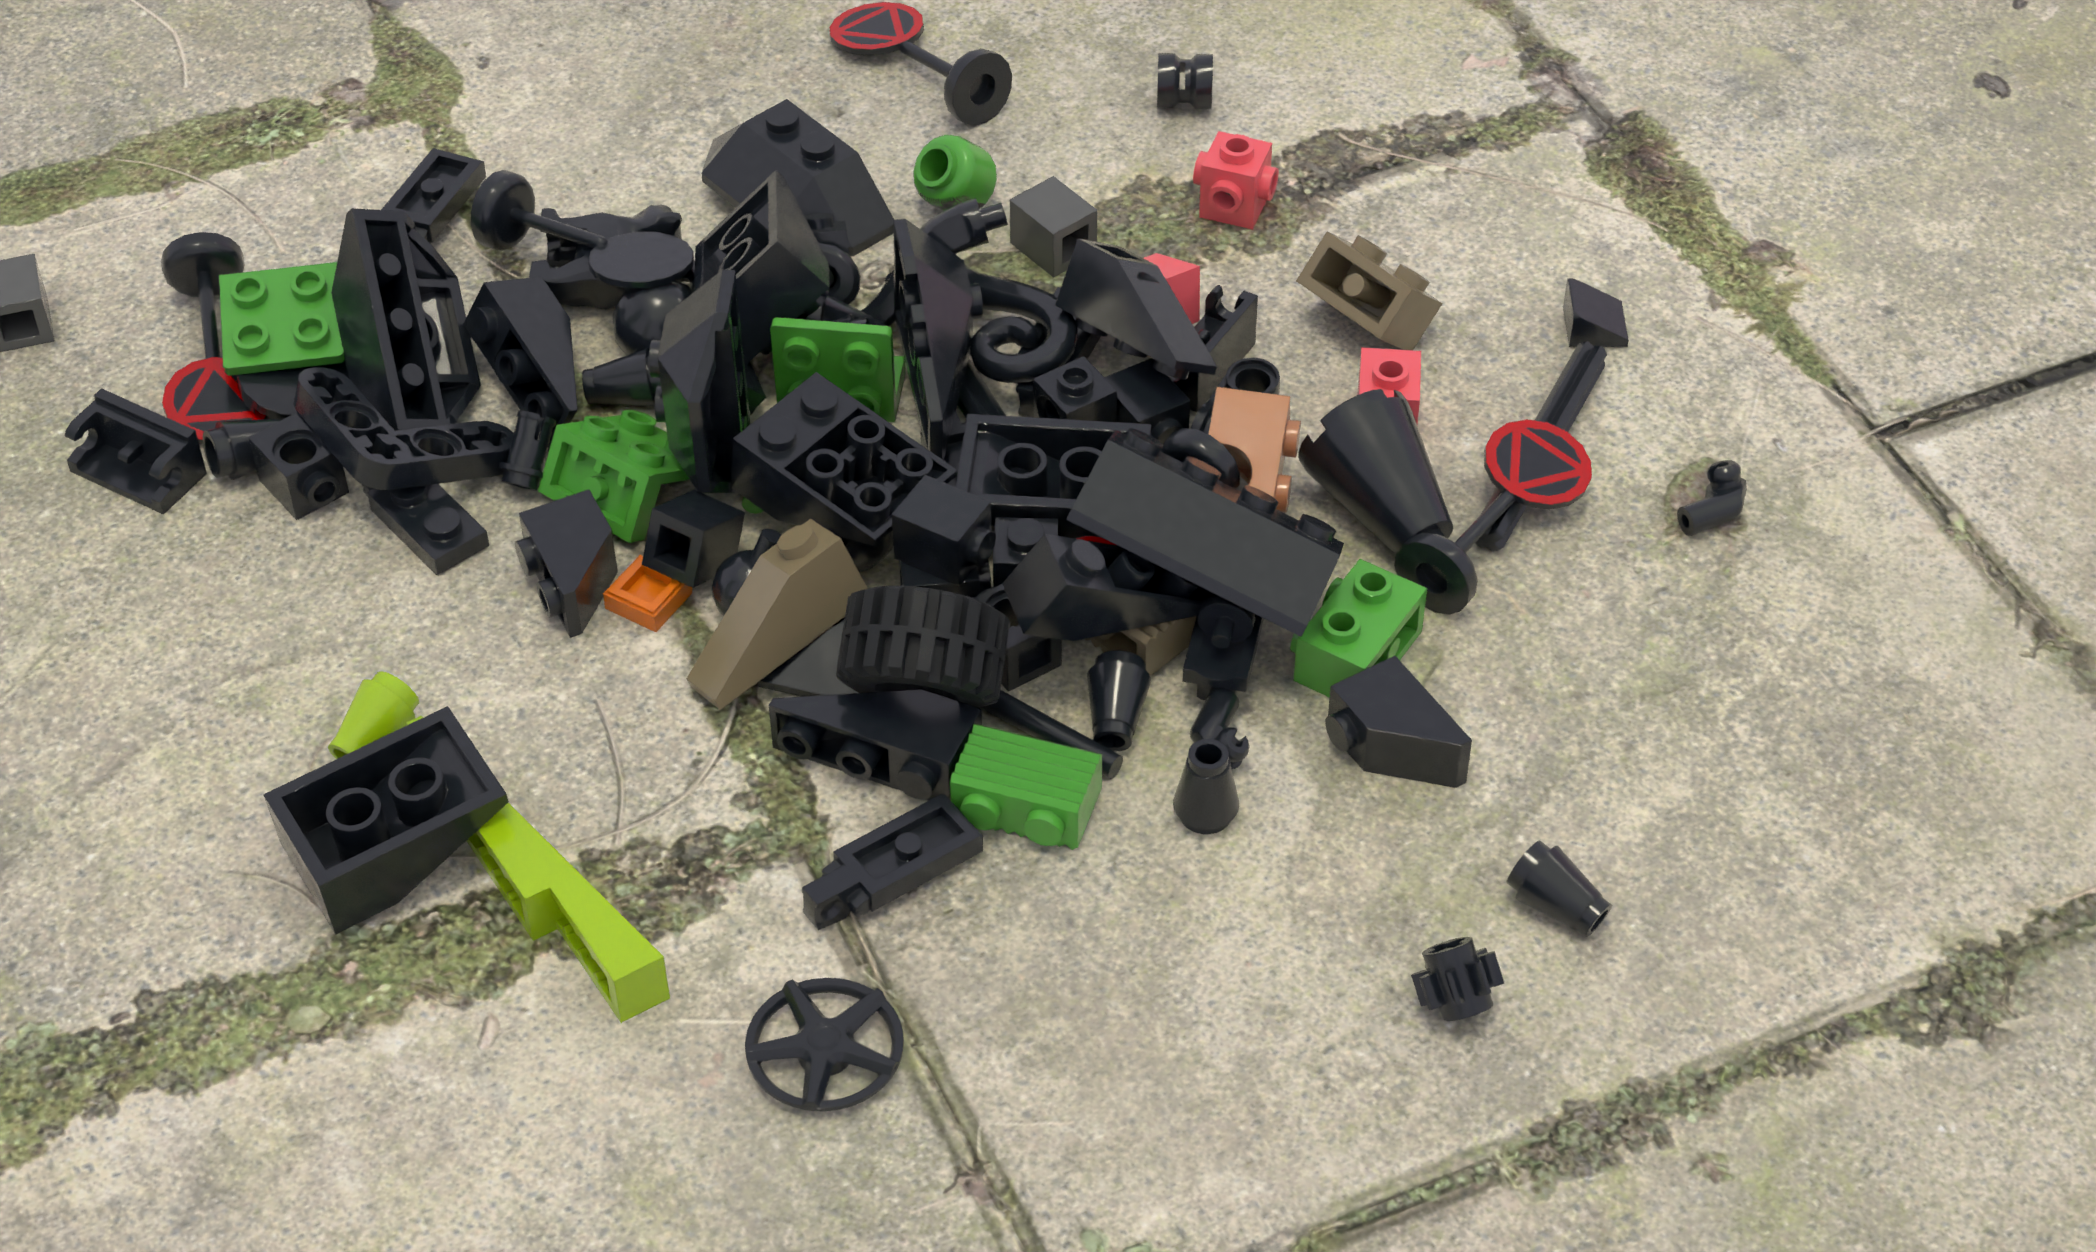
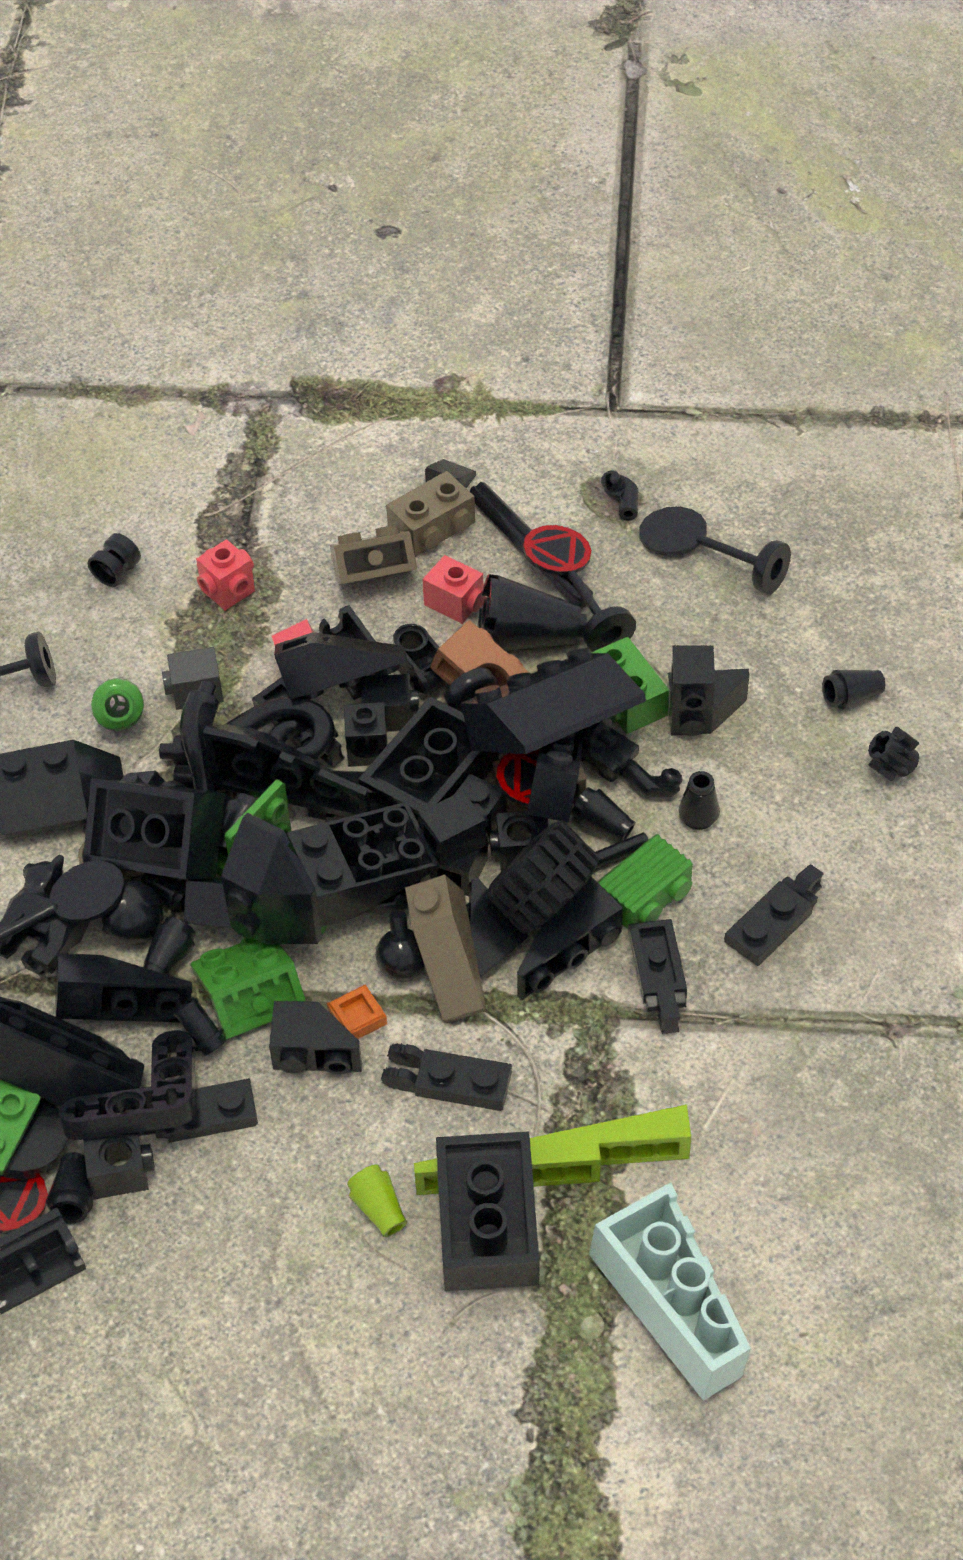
camera: 60 degrees left, 5 degrees up
(373, 1059) = (671, 1289): none -> light aqua wedge
(602, 723) = (448, 1077): none -> black hinge
(692, 537) = (345, 965): black brick -> none
(824, 1043) = (768, 1059): black wheel -> none
(1079, 960) = (775, 916): none -> black hinge
(1383, 671) = (693, 677): none -> black brick
(1502, 321) = (433, 511): none -> dark tan brick
(1704, 585) = (683, 529): none -> black piece

